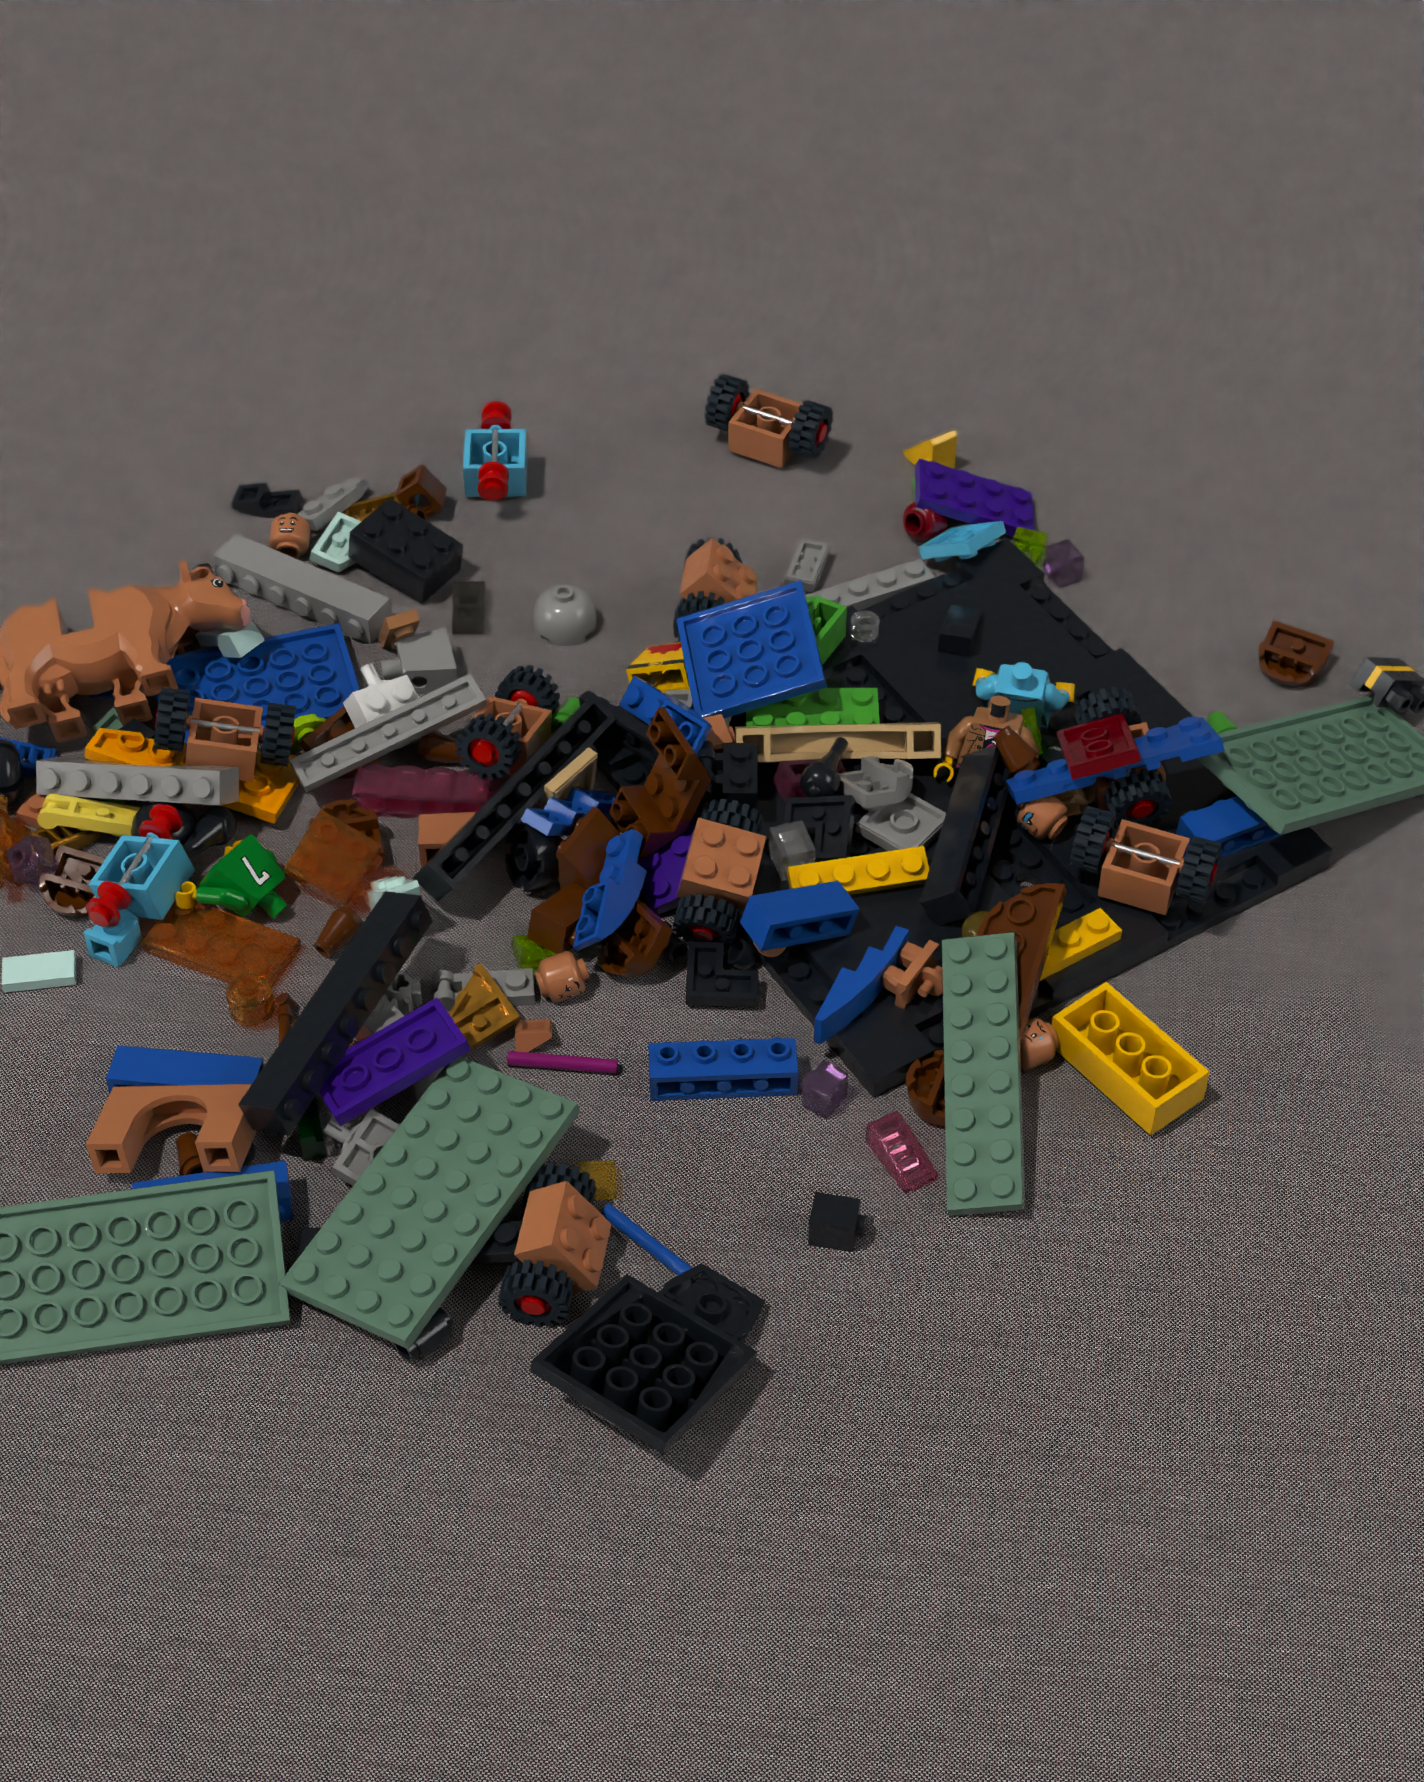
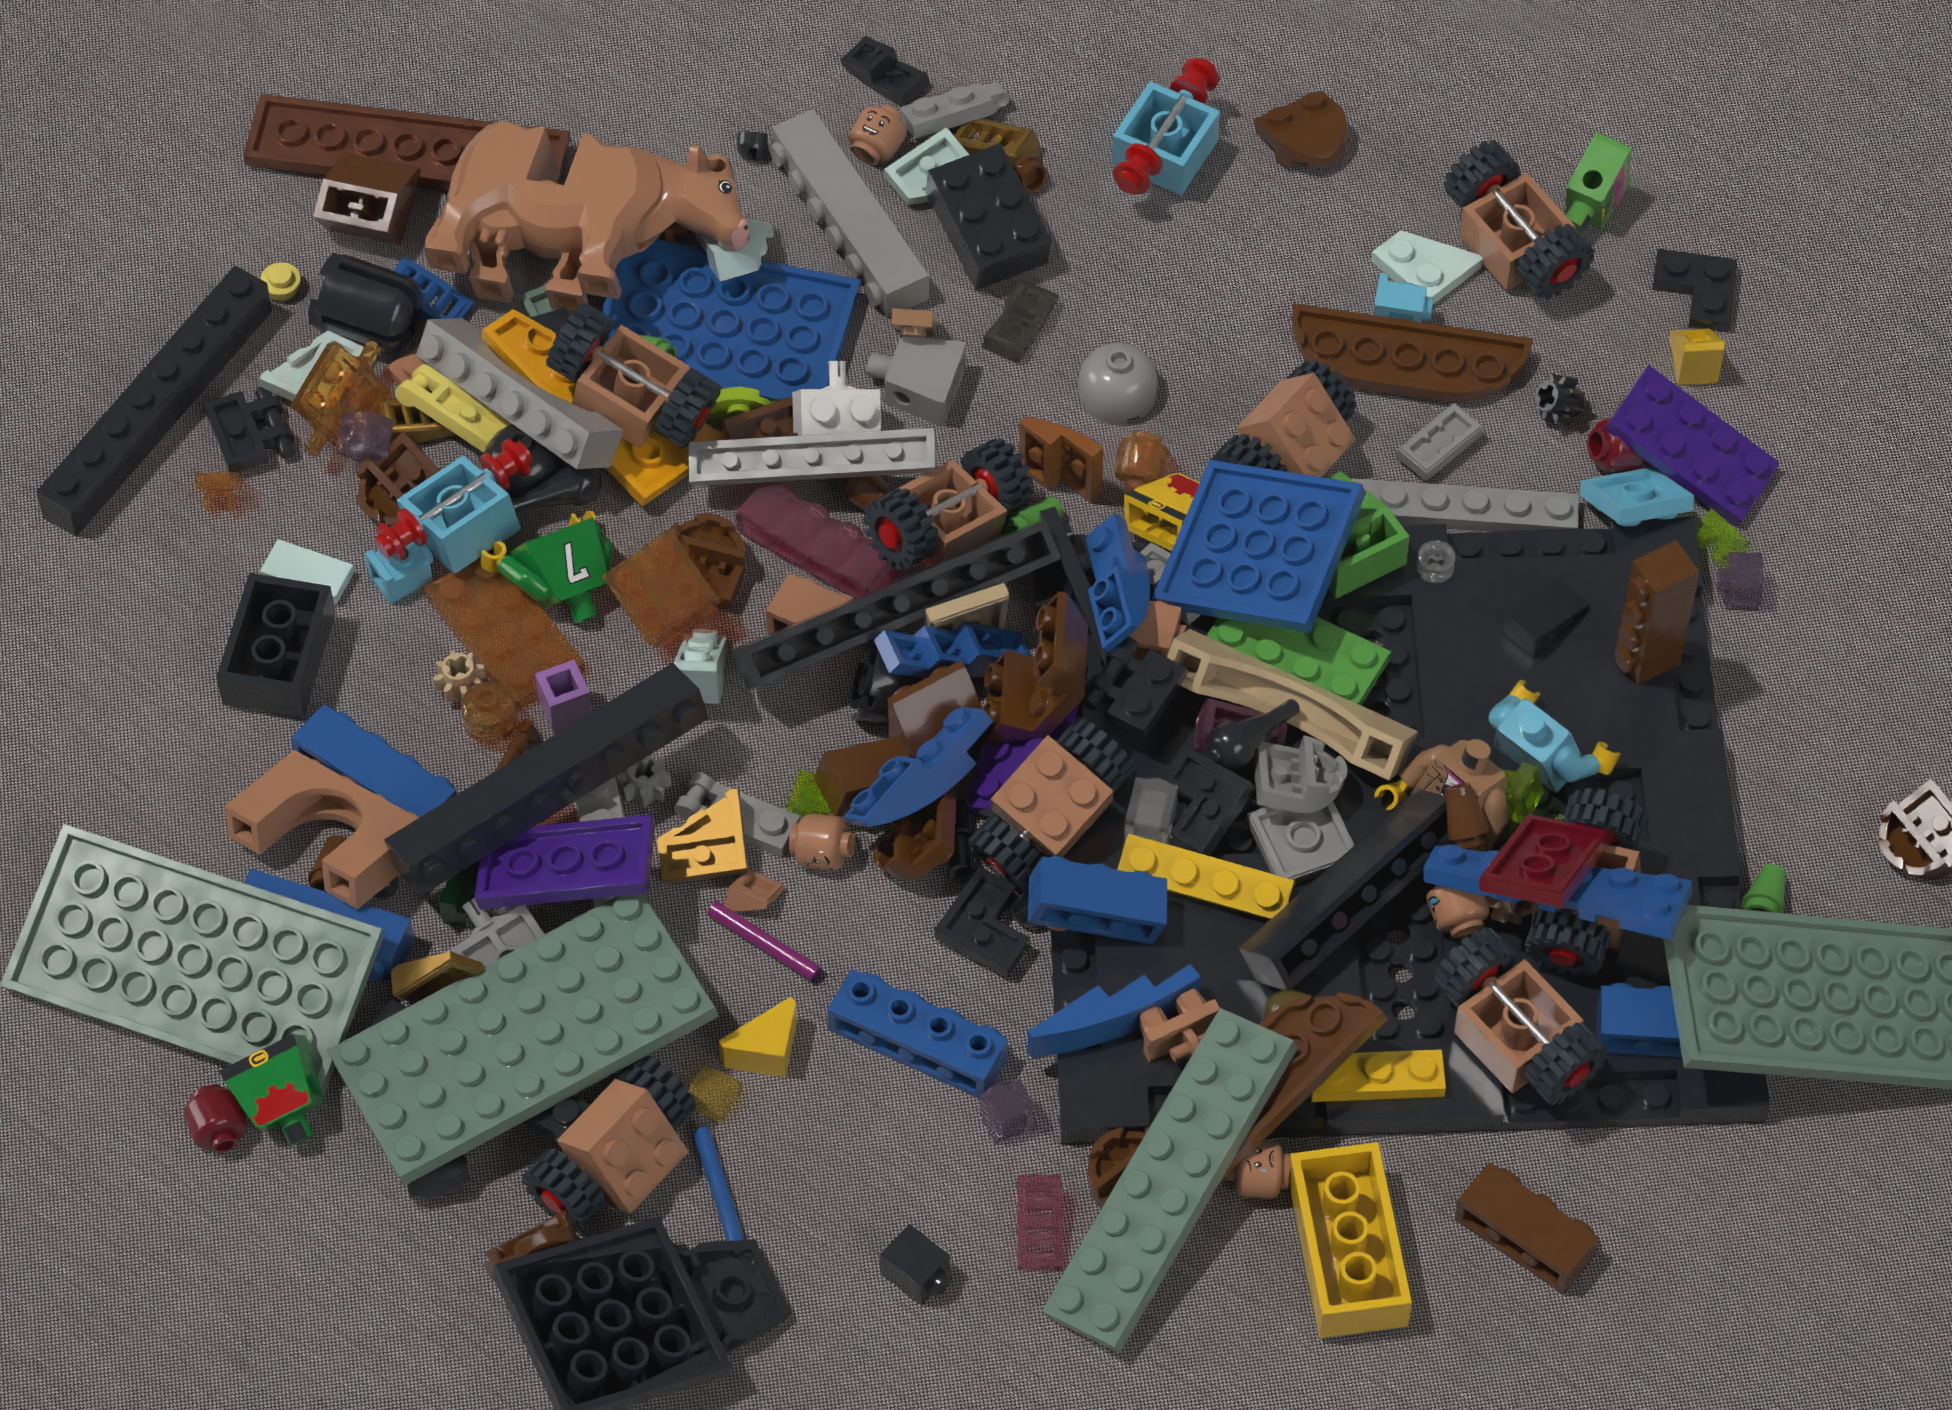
camera: 30 degrees right, 10 degrees up
(50, 1024) = (276, 645): none -> black brick
(208, 987) = (457, 675): none -> tan gear
(215, 1378) = (215, 1119): none -> dark red head
(256, 1328) = (278, 1087): none -> green torso
(302, 963) = (563, 695): none -> medium lavender brick
(328, 1191) = (430, 974): none -> pearl gold slope
(338, 931) = (626, 672): reddish brown cone -> none
(421, 489) = (1056, 141): reddish brown brick -> none
(547, 1329) = (546, 1235): none -> reddish brown slope
(569, 662) = (1061, 455): none -> dark orange slope
(583, 428) = (1305, 131): none -> reddish brown slope
(614, 1127) = (762, 1043): none -> yellow slope
(616, 651) = (1141, 459): none -> clear orange head
(718, 475) = (1425, 263): none -> light aqua wing
(722, 499) = (1402, 300): none -> medium azure brick
(749, 524) = (1409, 354): none -> reddish brown plate
(800, 359) = (1598, 182): none -> bright green torso
(860, 505) = (1559, 399): none -> black gear
(901, 414) = (1705, 278): none -> black plate
(1048, 578) = (1656, 612): none -> reddish brown brick
(1235, 997) = (1526, 1227): none -> reddish brown brick

